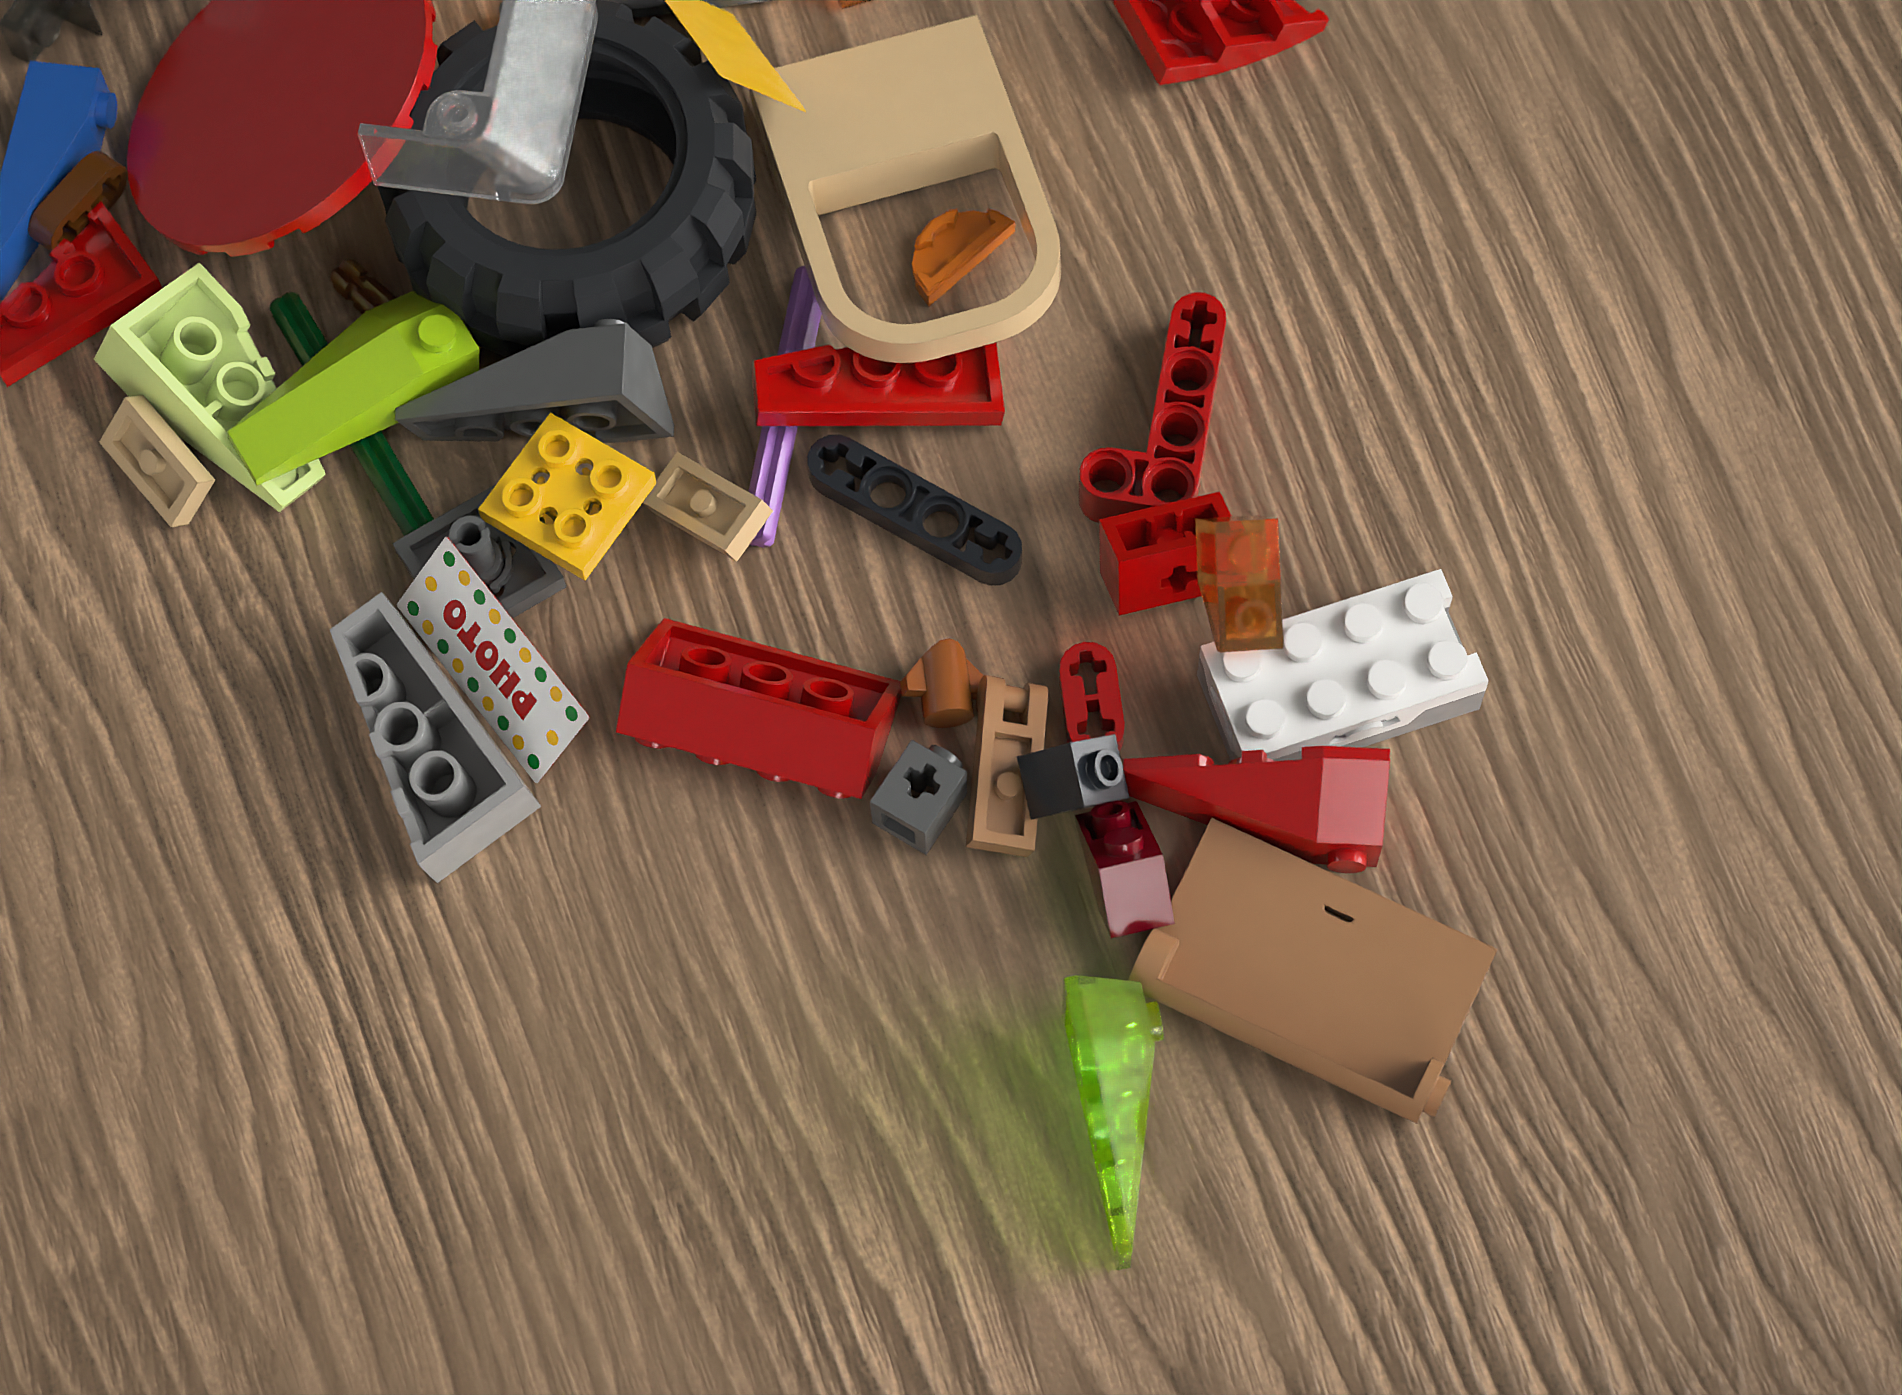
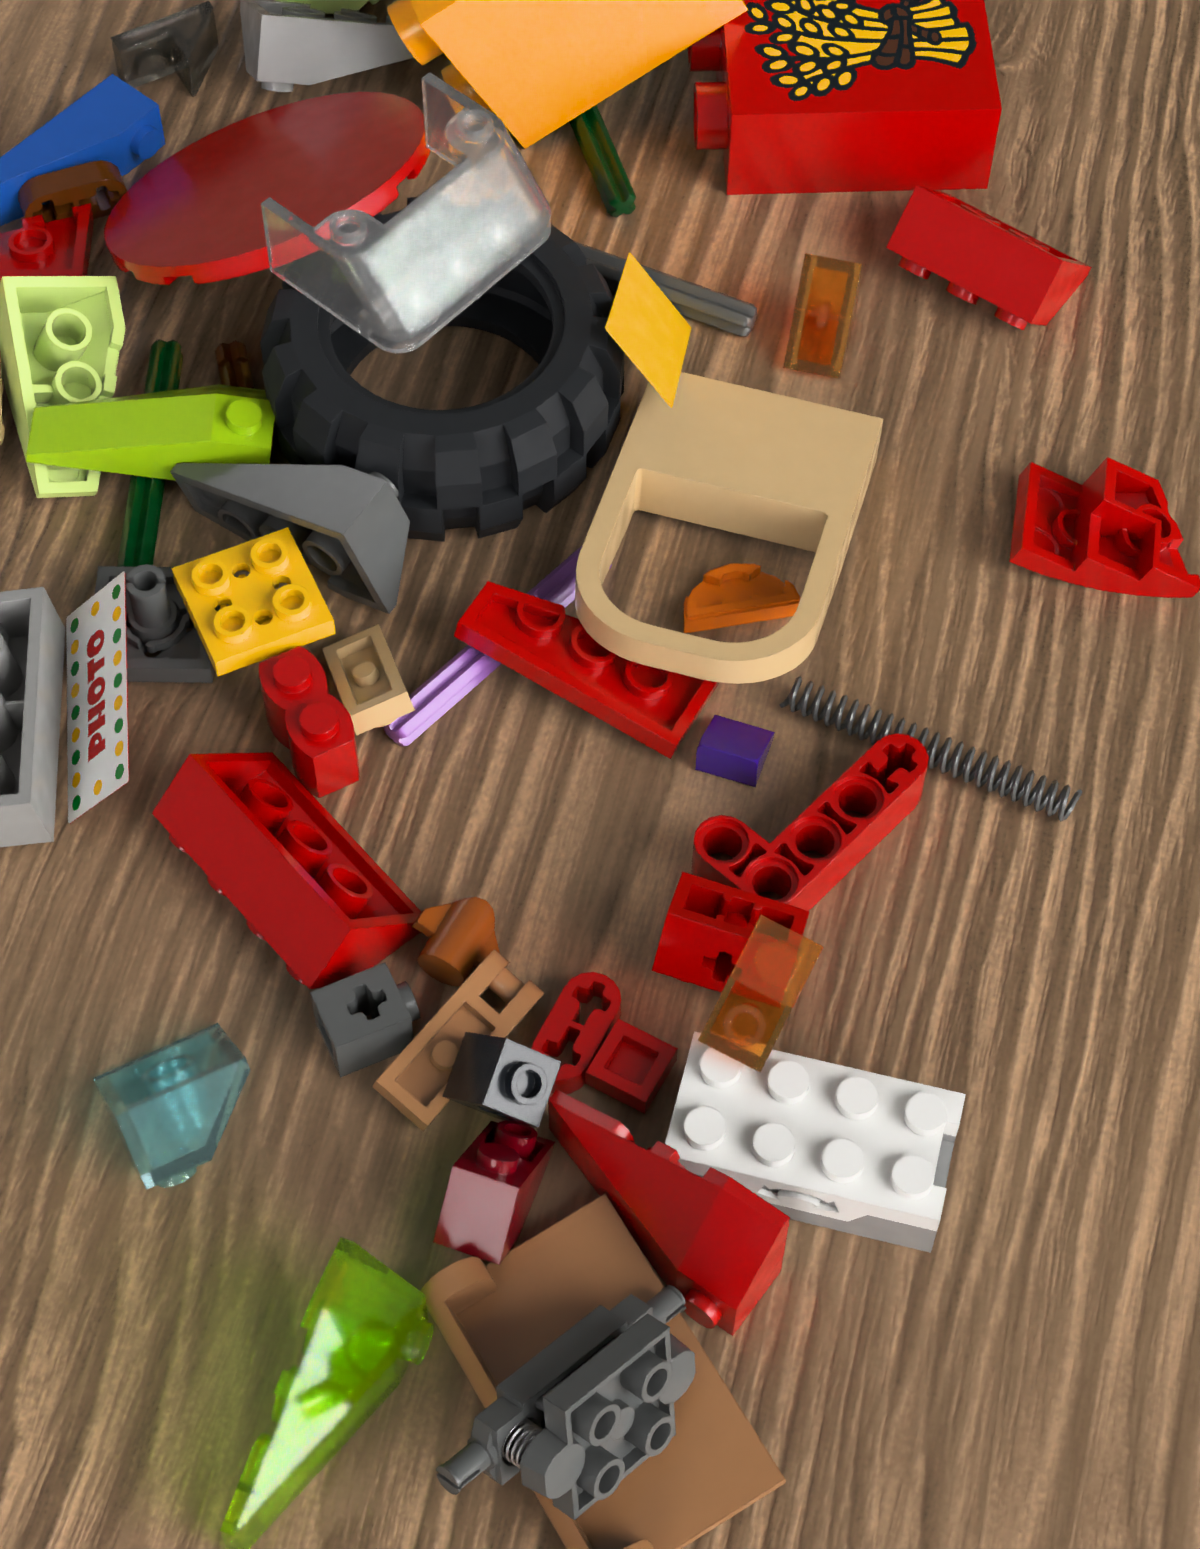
camera: 30 degrees right, 10 degrees down
(674, 570) = (309, 721): none -> red brick
(820, 955) = (175, 1104): none -> clear light blue slope
(909, 516) = (539, 786): black beam -> none
(1047, 386) = (733, 750): none -> dark purple slope
(1091, 300) = (942, 756): none -> dark grey piece
(1157, 703) = (631, 1066): none -> red plate
(1329, 986) = (584, 1407): none -> dark grey piece

